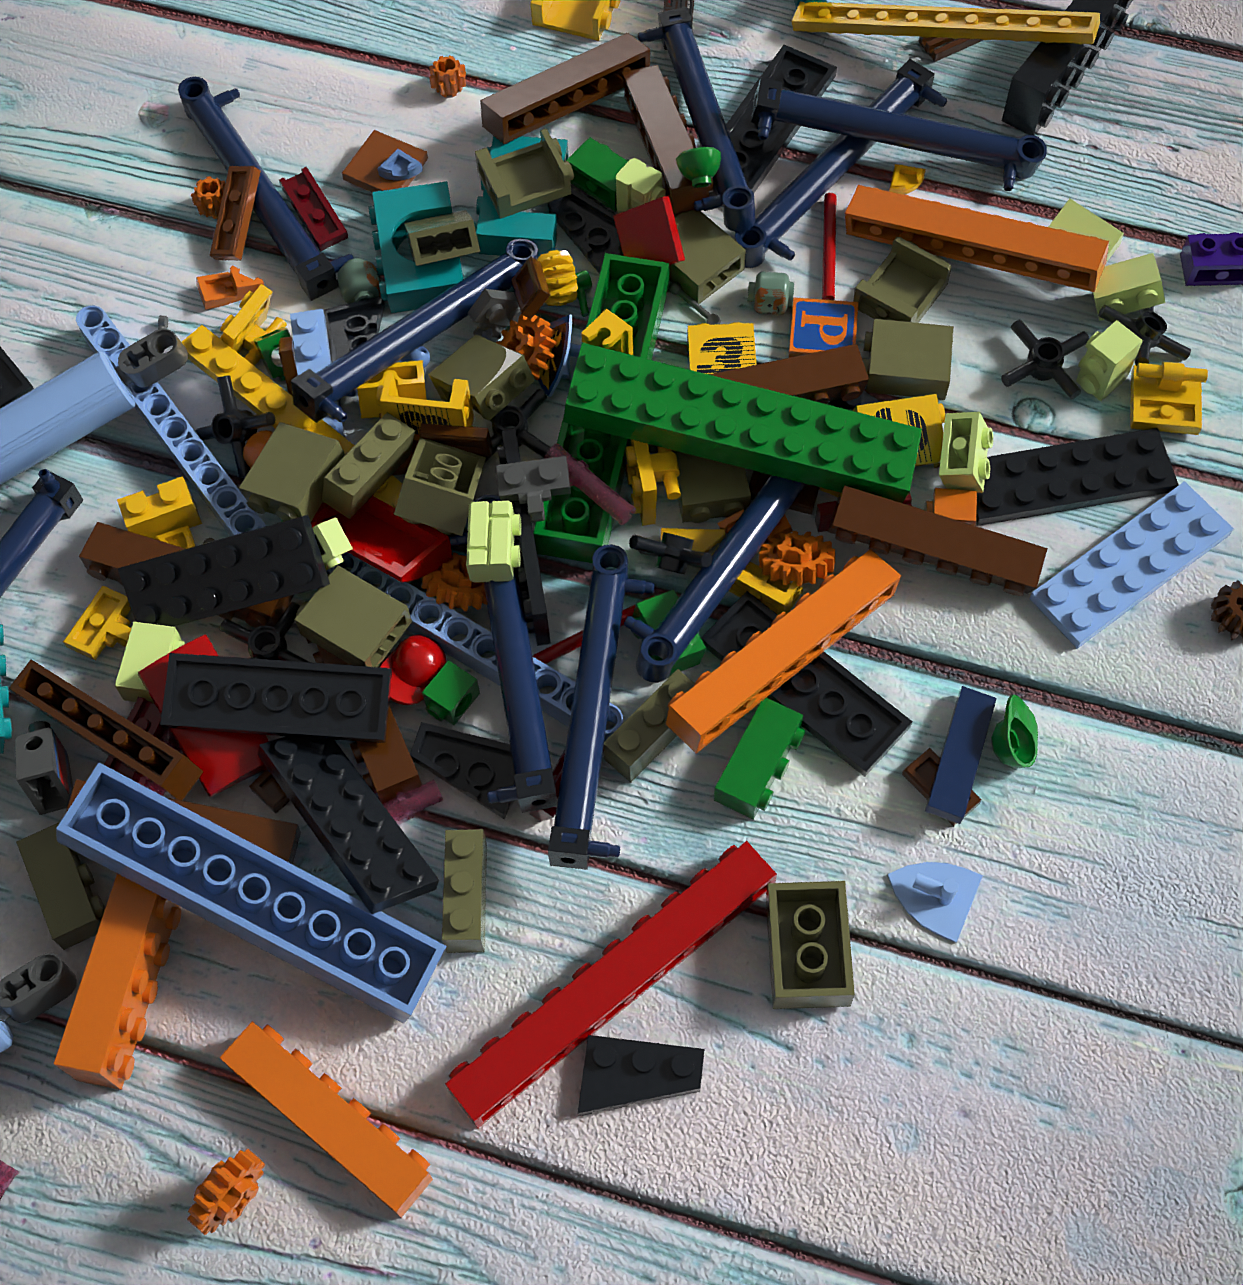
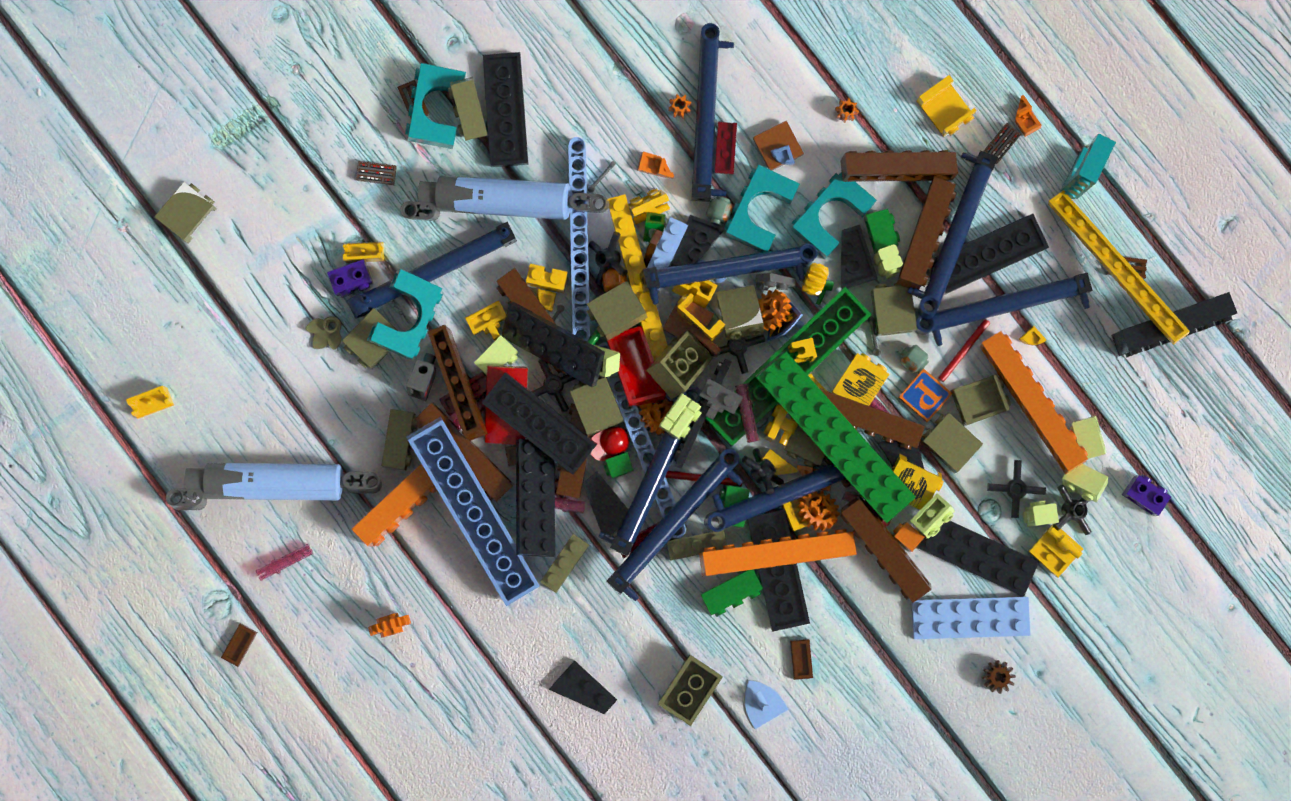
camera: 30 degrees right, 20 degrees up
(235, 213) = (684, 127): dark orange tile -> none
(327, 1118) = (447, 620): orange brick -> none
(368, 465) = (653, 330): olive brick -> none
(442, 237) = (773, 218): olive brick -> none
(525, 176) = (838, 211): olive panel -> none
(530, 287) = (794, 283): reddish brown tile -> none
(610, 984) = (600, 646): red brick -> none
(650, 232) = (874, 291): red tile -> none
(699, 165) = (921, 277): green brick -> none
(960, 755) = (819, 652): dark blue tile -> none
(1016, 156) = (990, 262): dark blue piece -> none
(1016, 735) = (850, 662): green cap -> none

